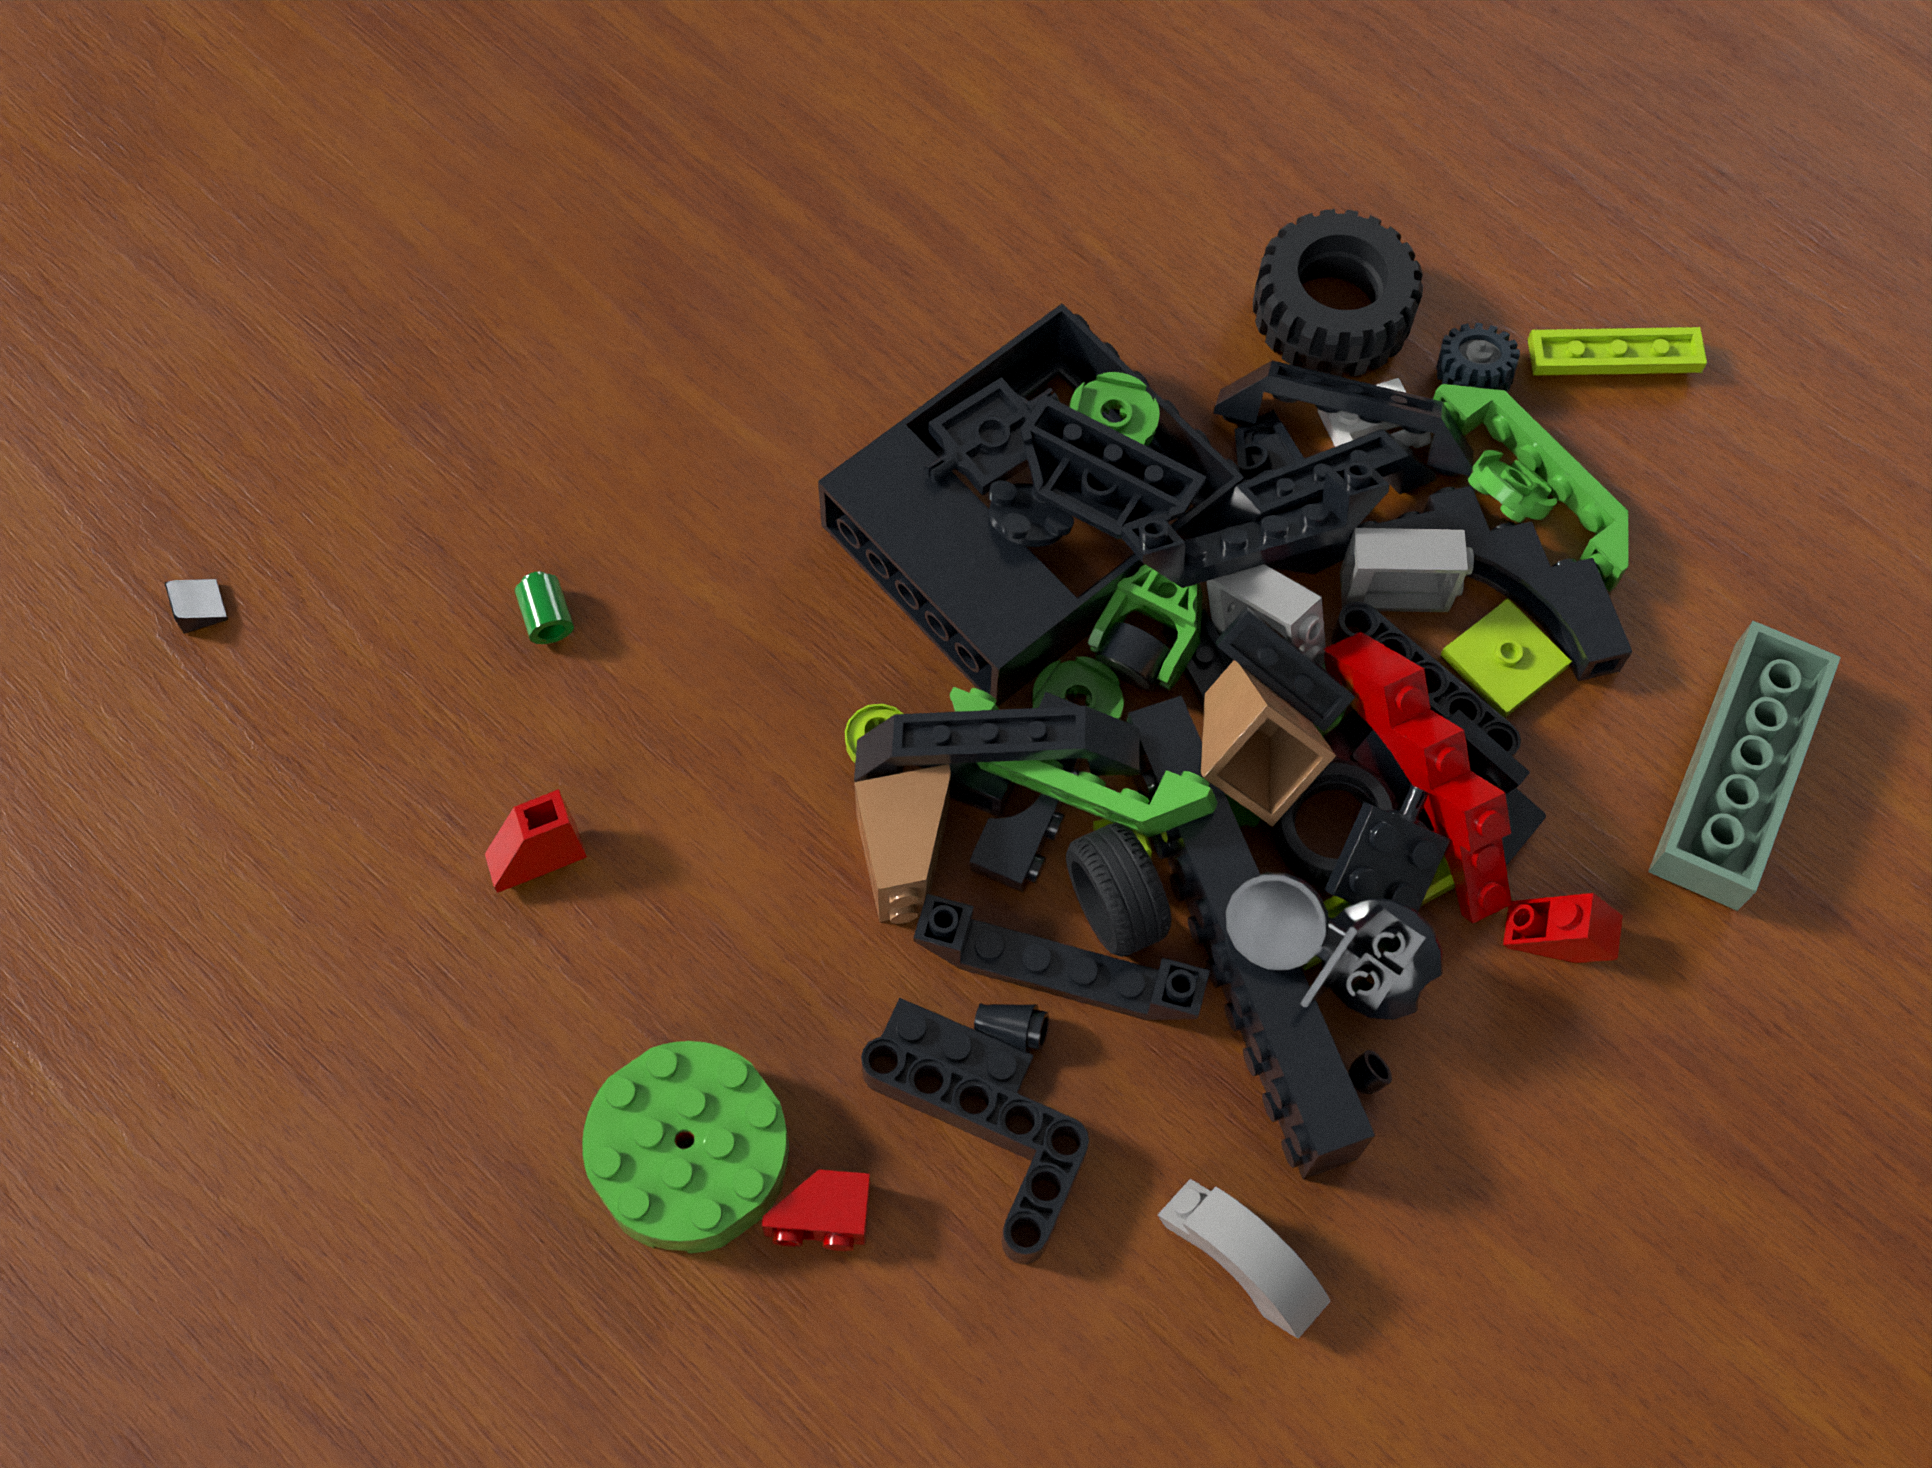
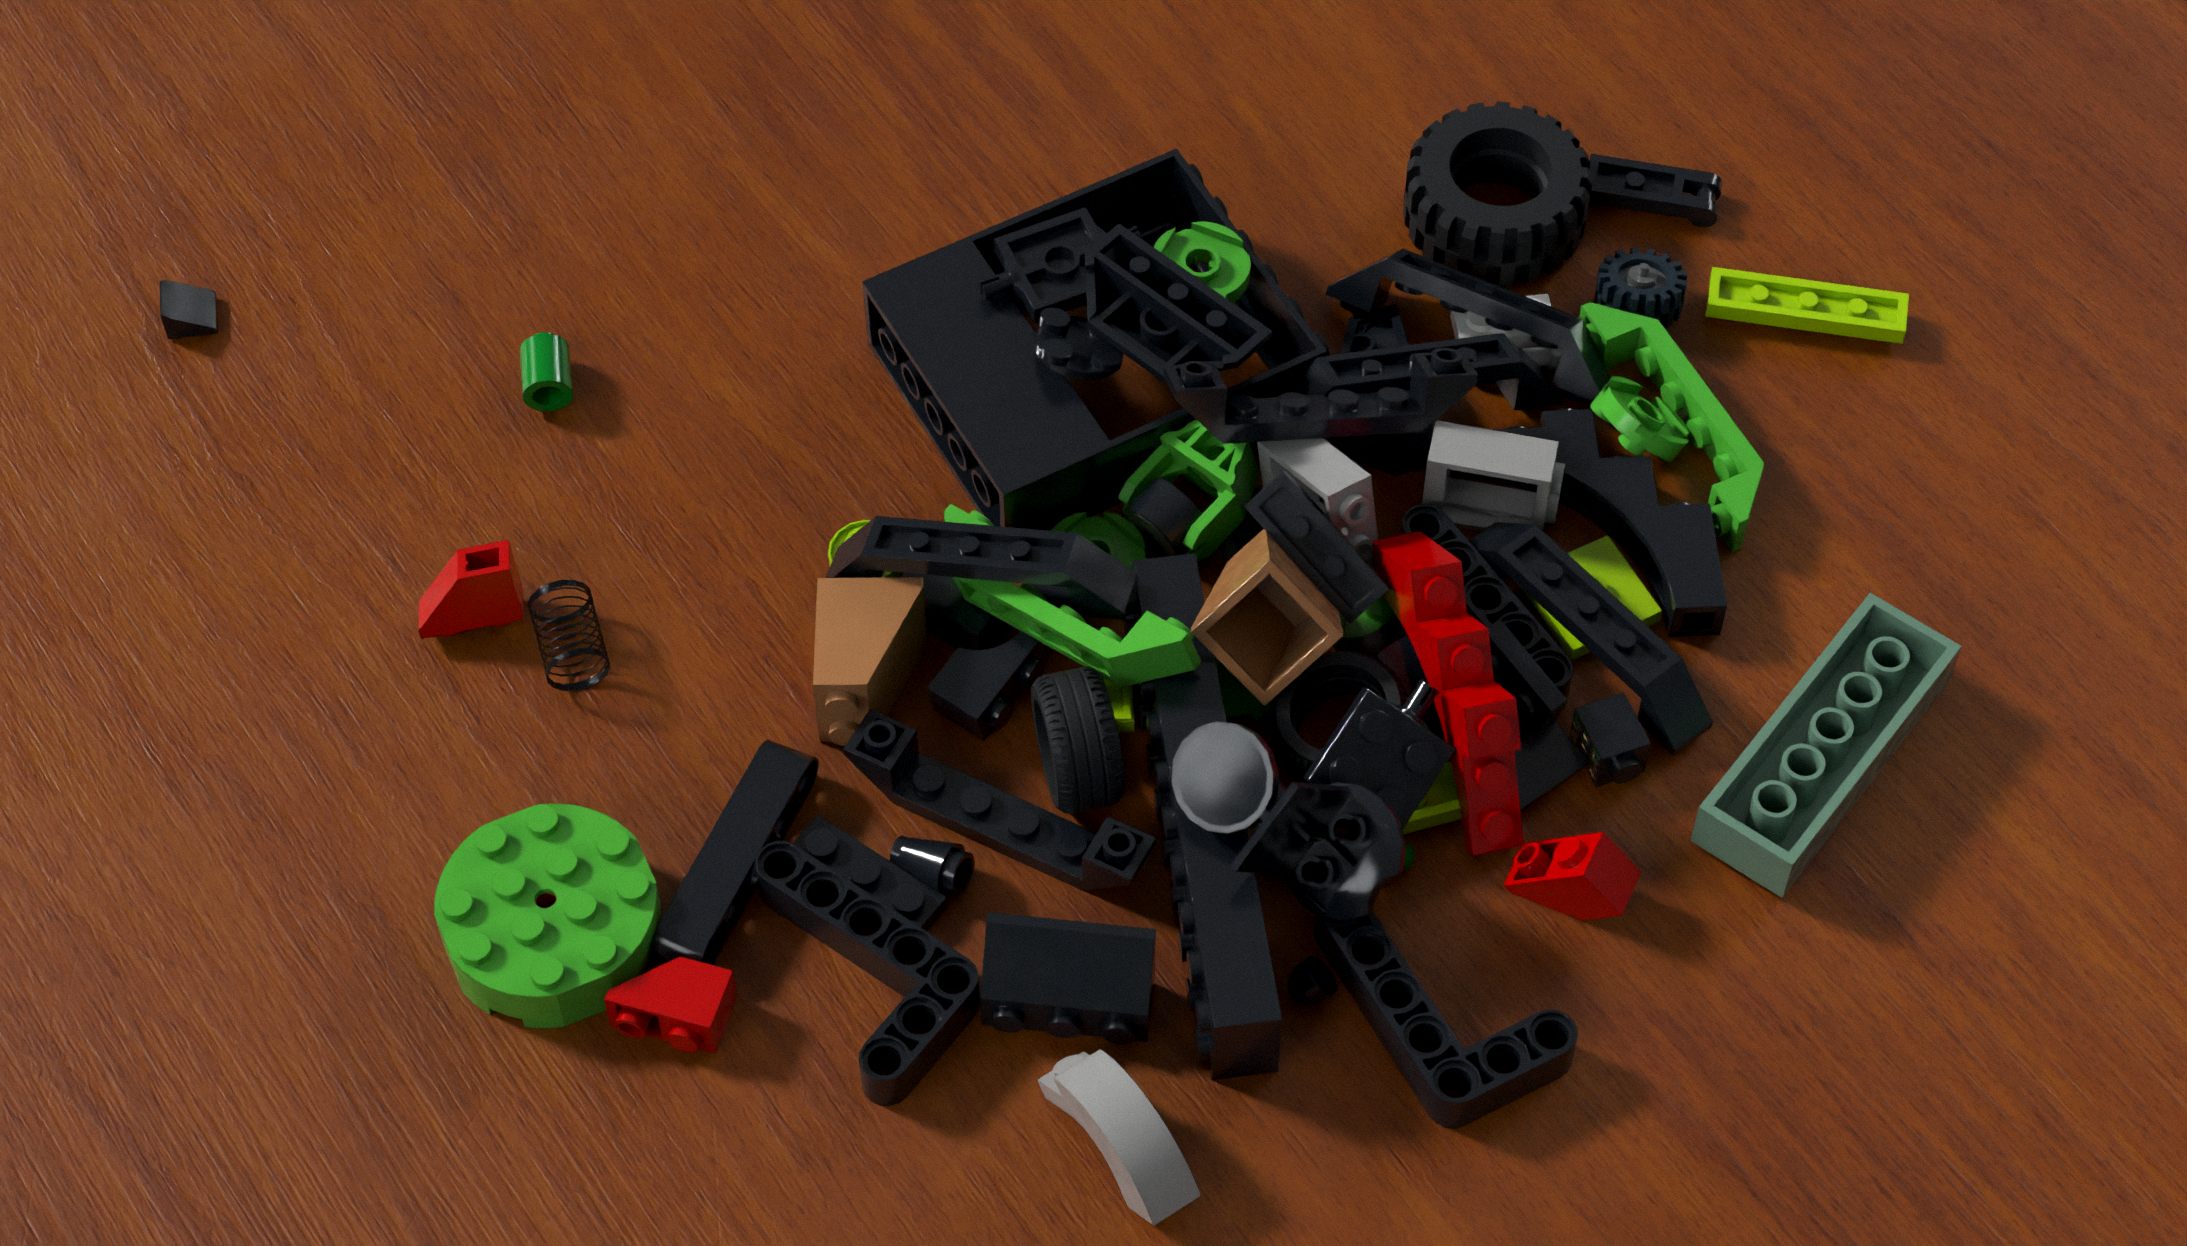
camera: 15 degrees right, 10 degrees down
(645, 888) = (584, 683): none -> black piece
(836, 1055) = (724, 870): none -> black beam
(1166, 1120) = (1068, 977): none -> black slope
(1467, 262) = (1655, 189): none -> black plate
(1476, 1092) = (1423, 1024): none -> black beam
(1527, 686) = (1669, 699): none -> black slope
(1563, 793) = (1610, 740): none -> black brick

